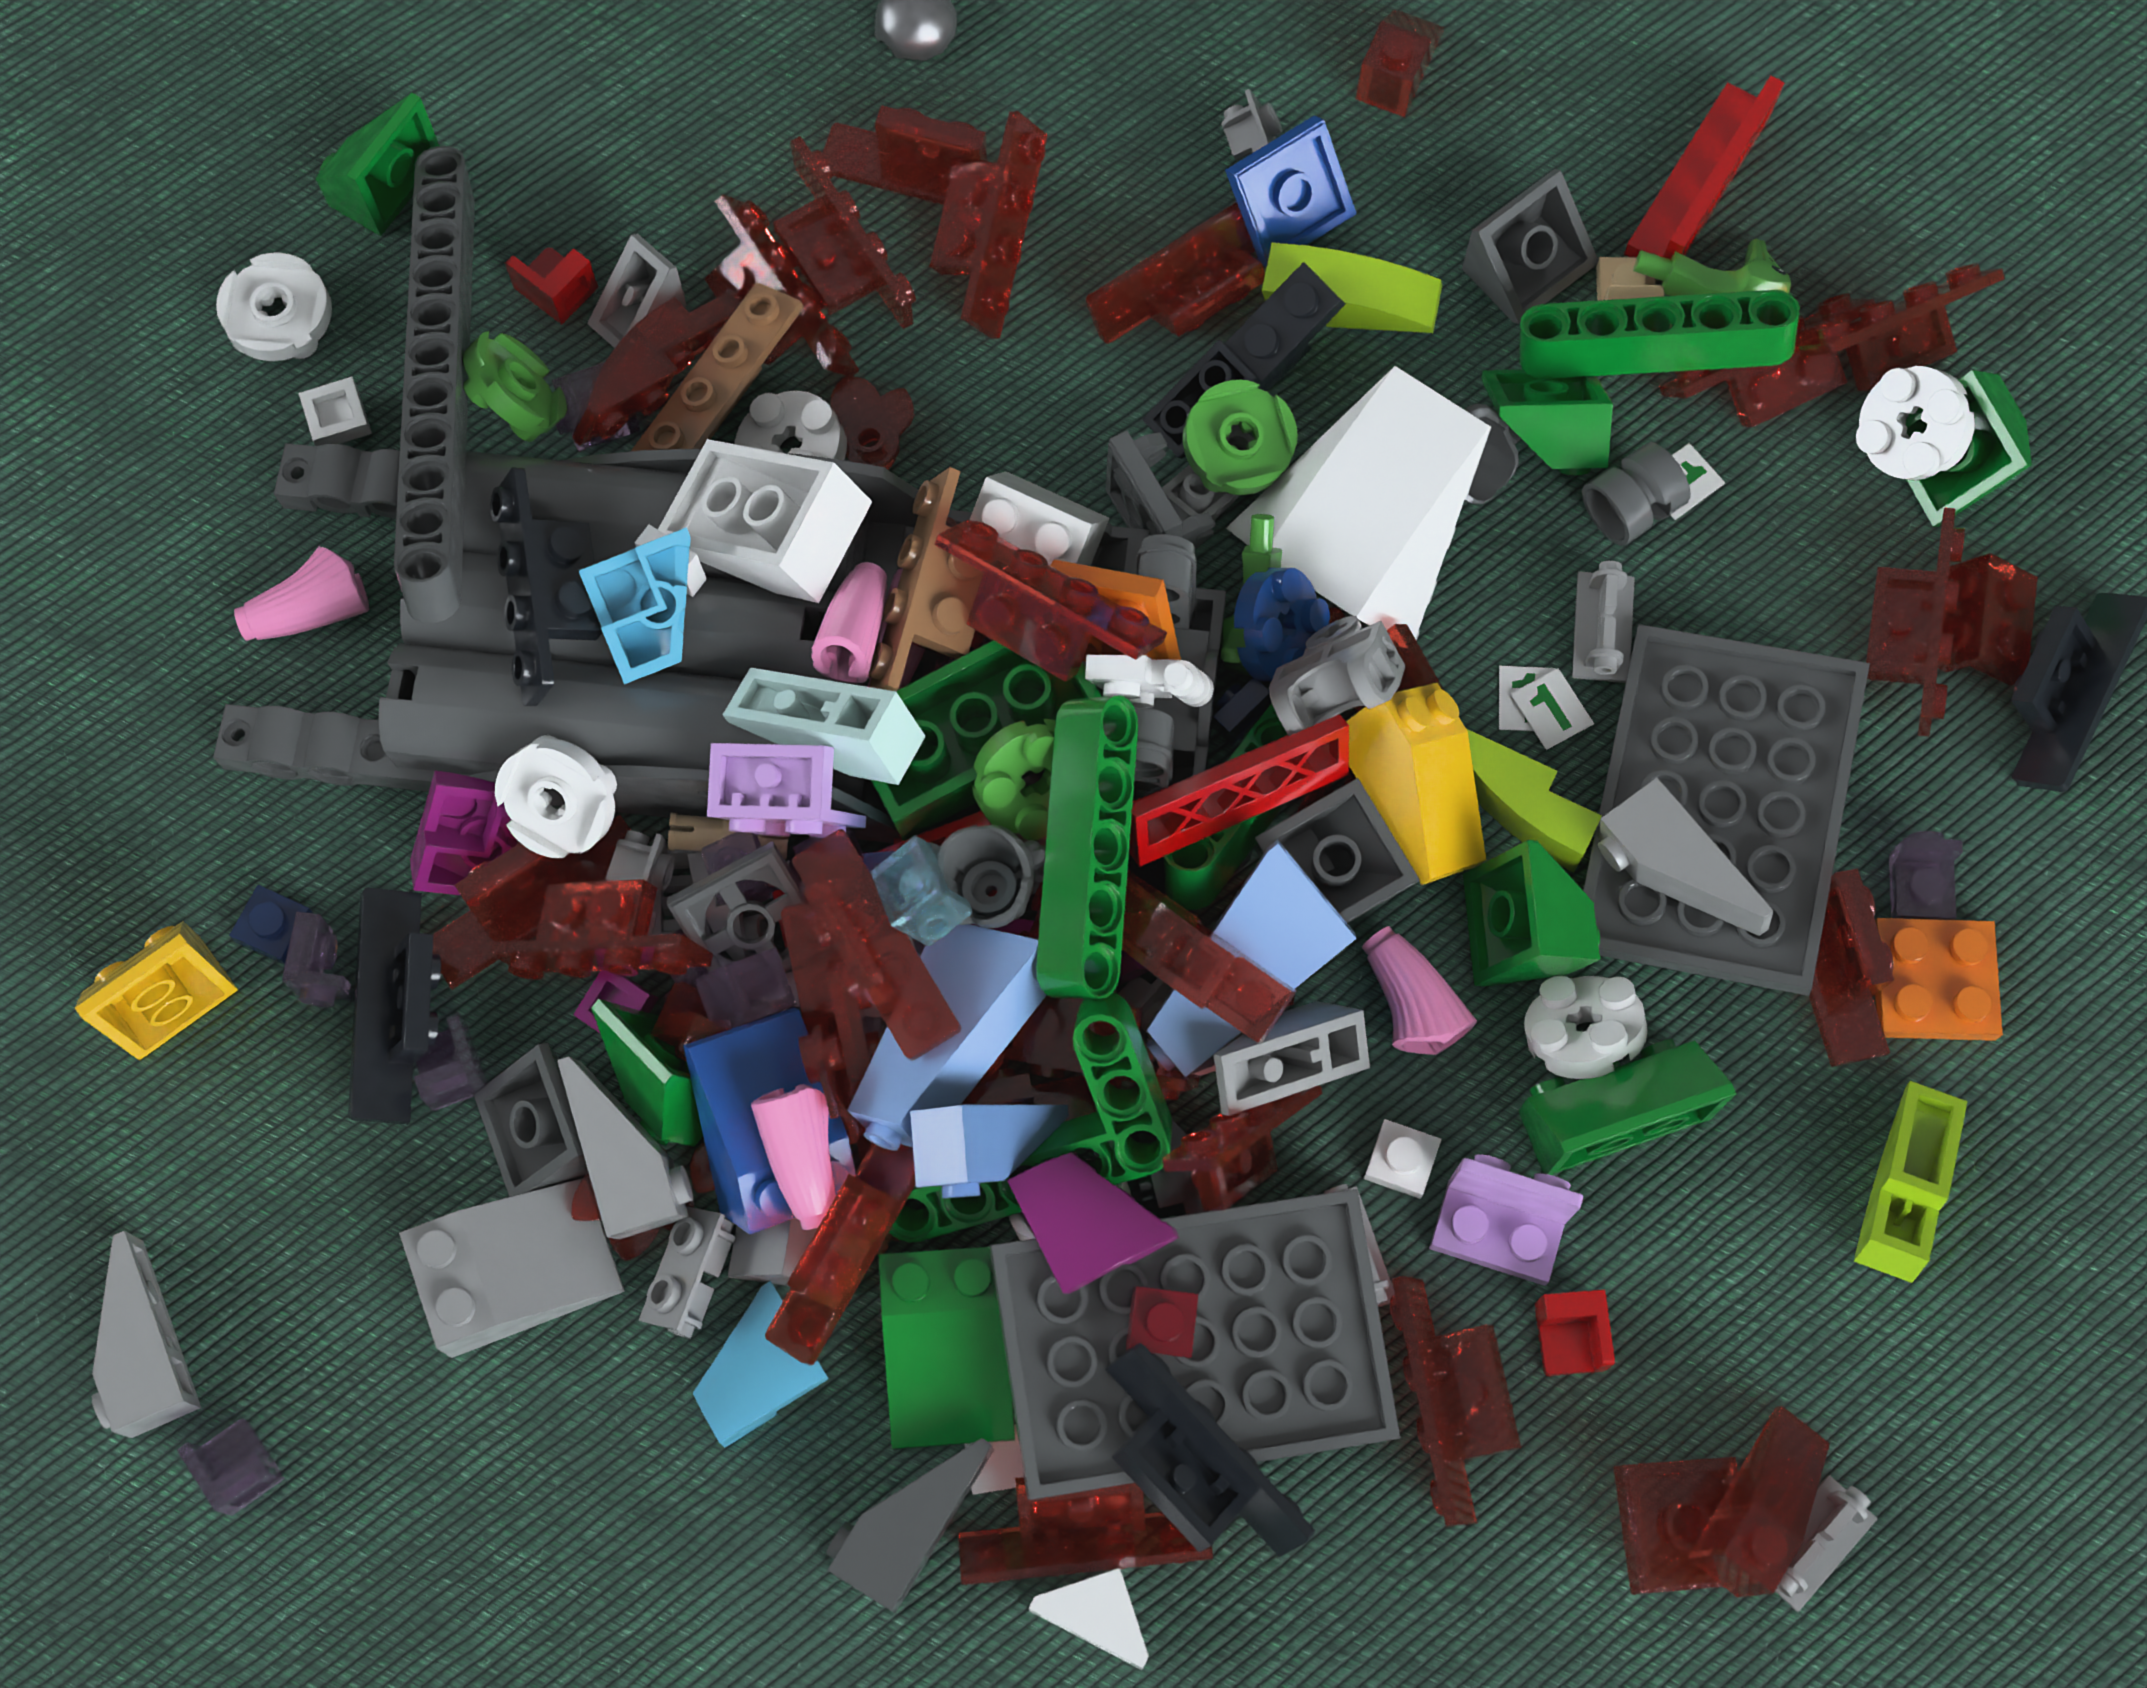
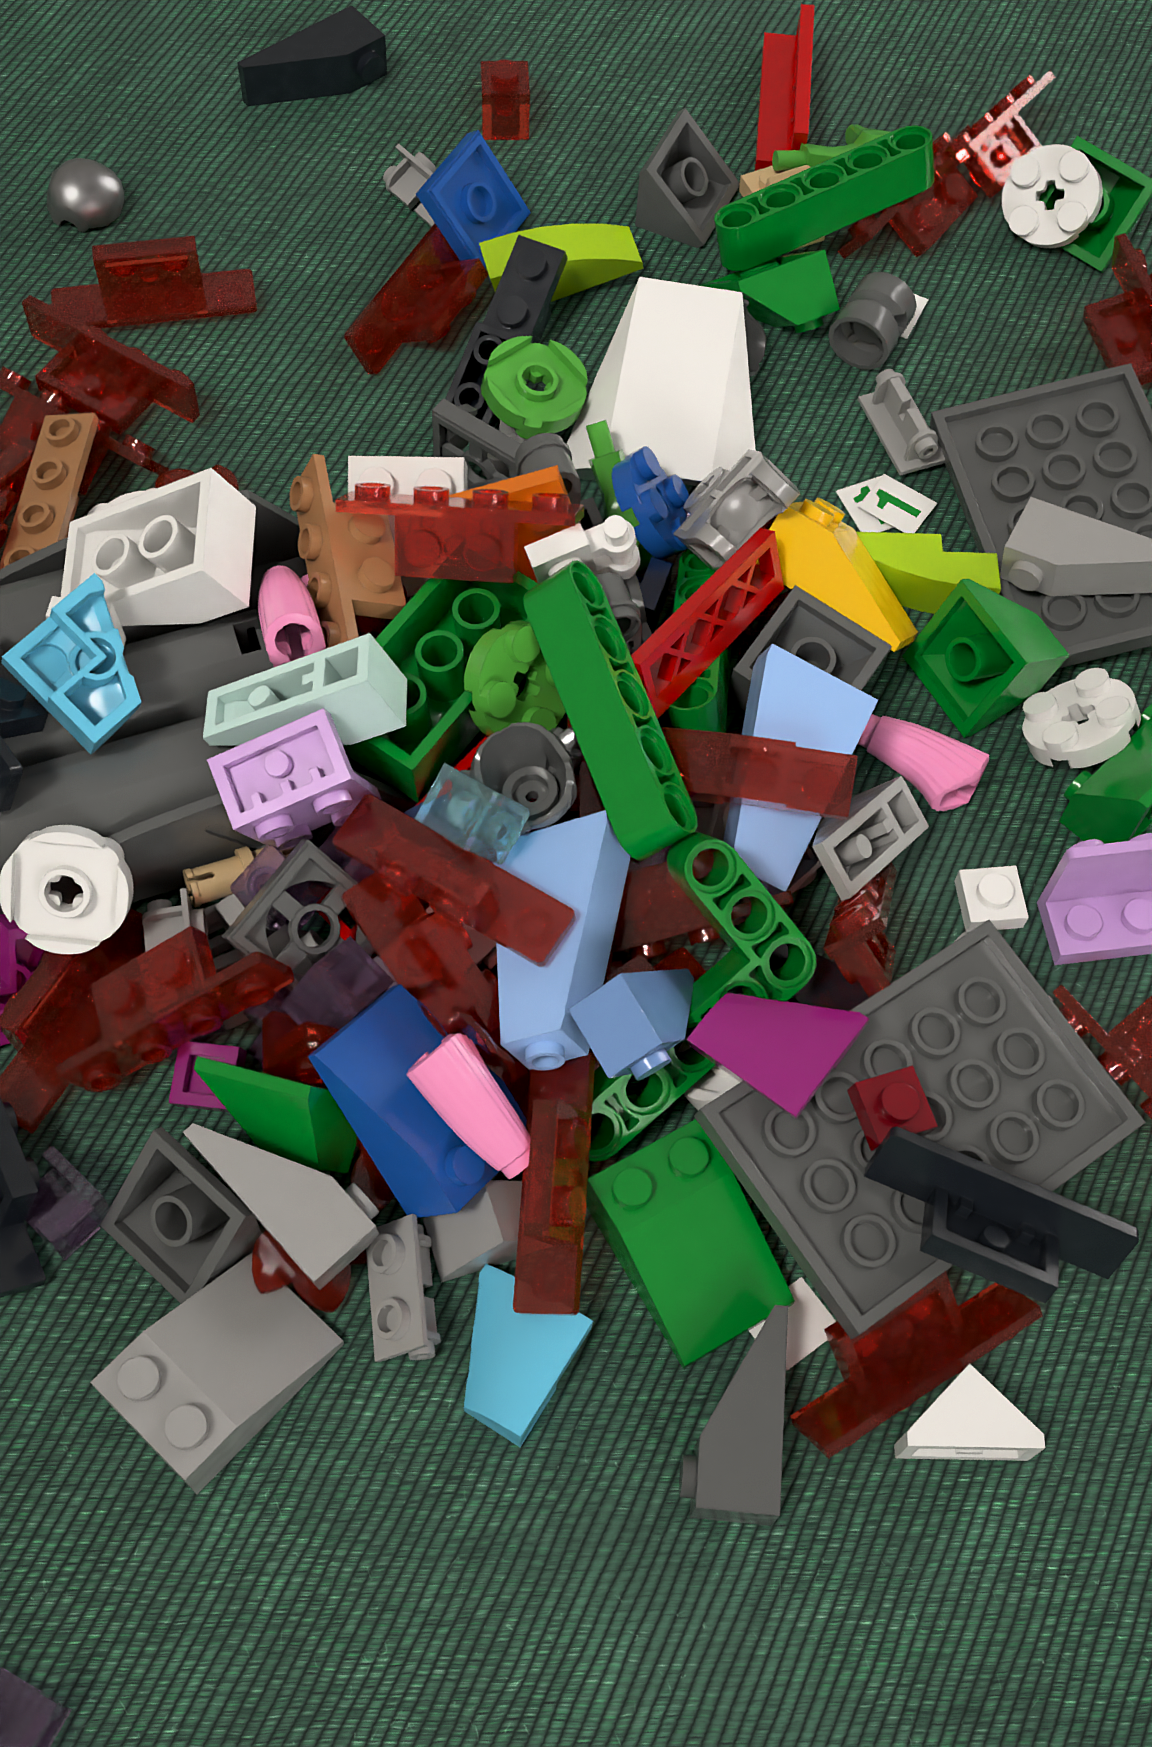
camera: 30 degrees left, 10 degrees down
(987, 223) = (226, 311): clear red bracket -> none

